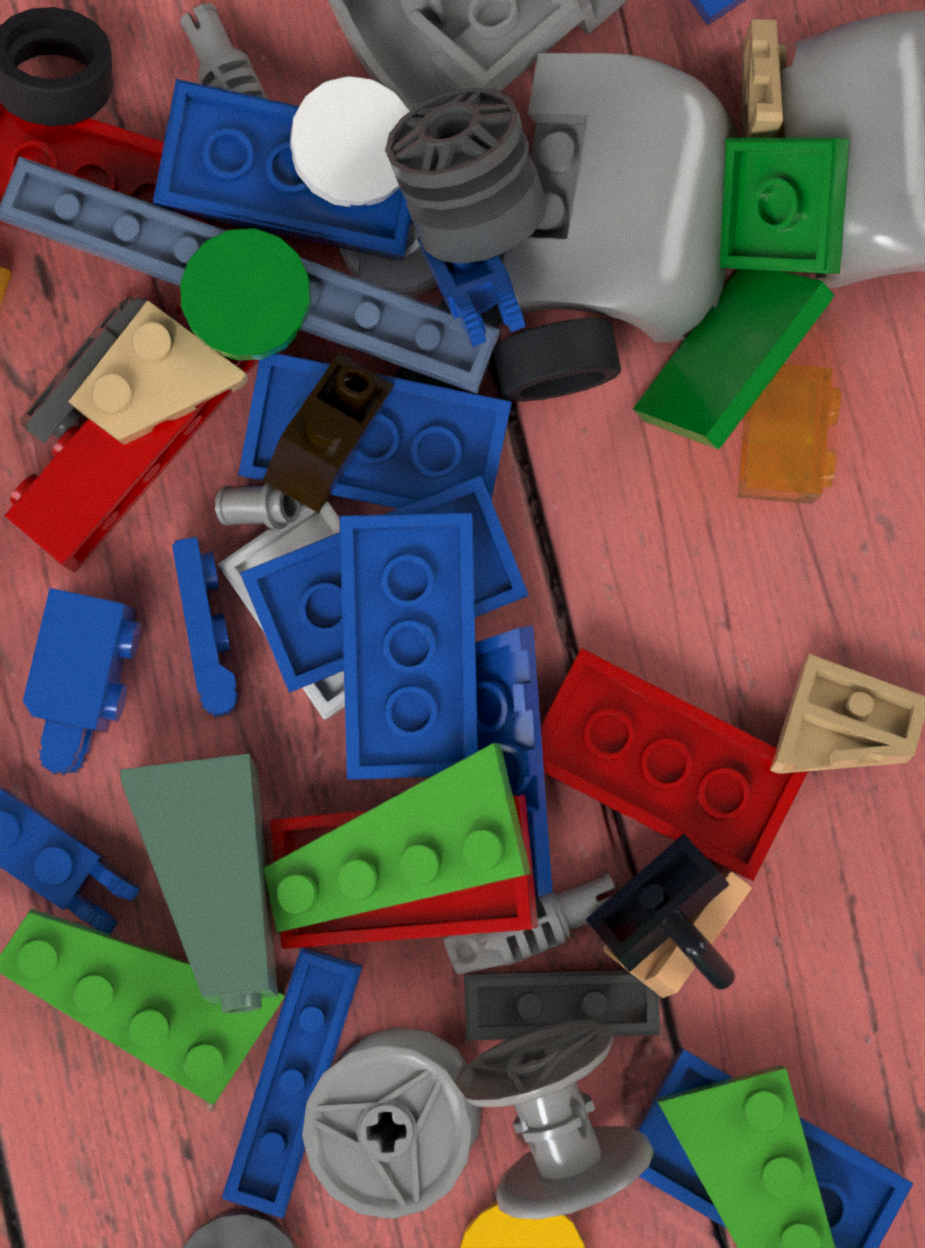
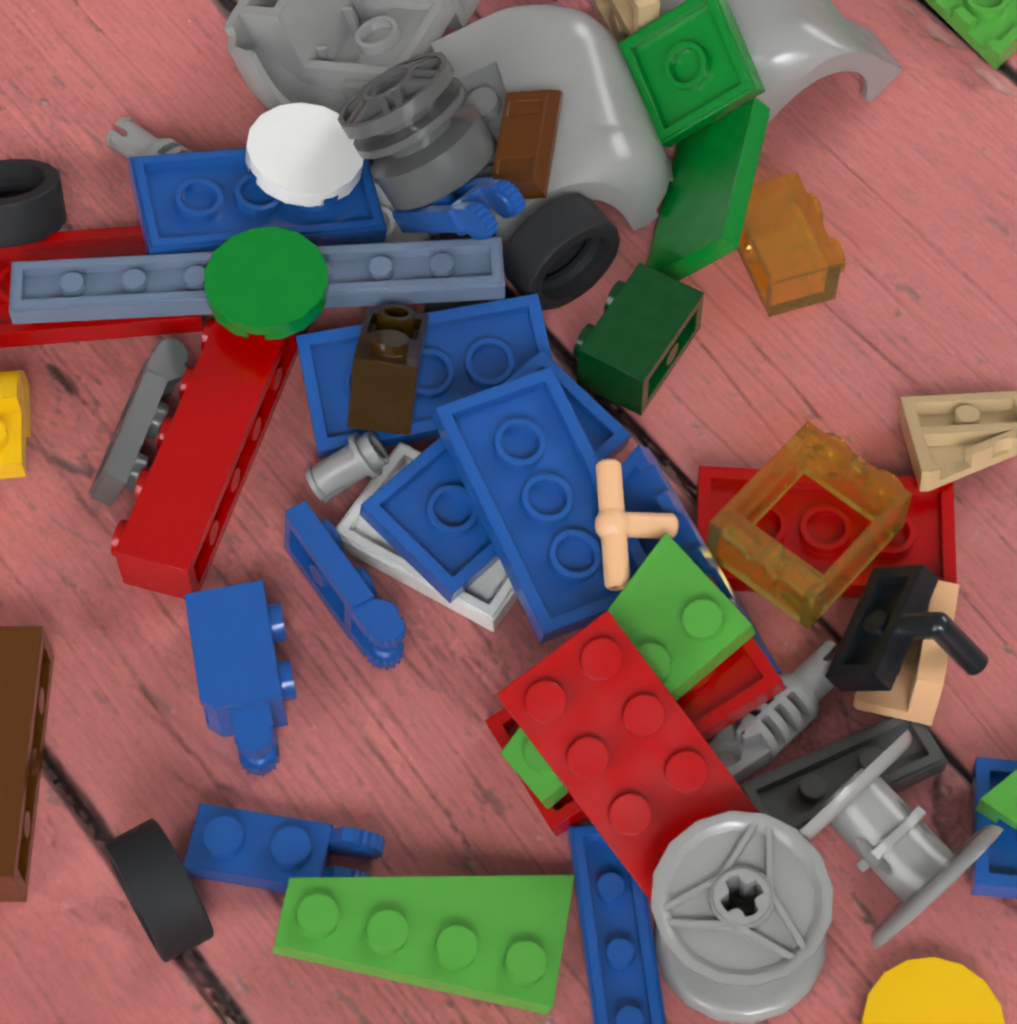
camera: 30 degrees left, 25 degrees down
(153, 376) = (207, 385): tan wing -> none
(209, 858) = (450, 777): sand green slope -> none
(364, 938) = (621, 745): none -> red plate
(457, 705) = (617, 525): none -> light nougat piece
(568, 236) = (528, 140): none -> reddish brown tile
(589, 484) = (638, 337): none -> dark green brick
(720, 761) = (775, 569): none -> clear yellow window

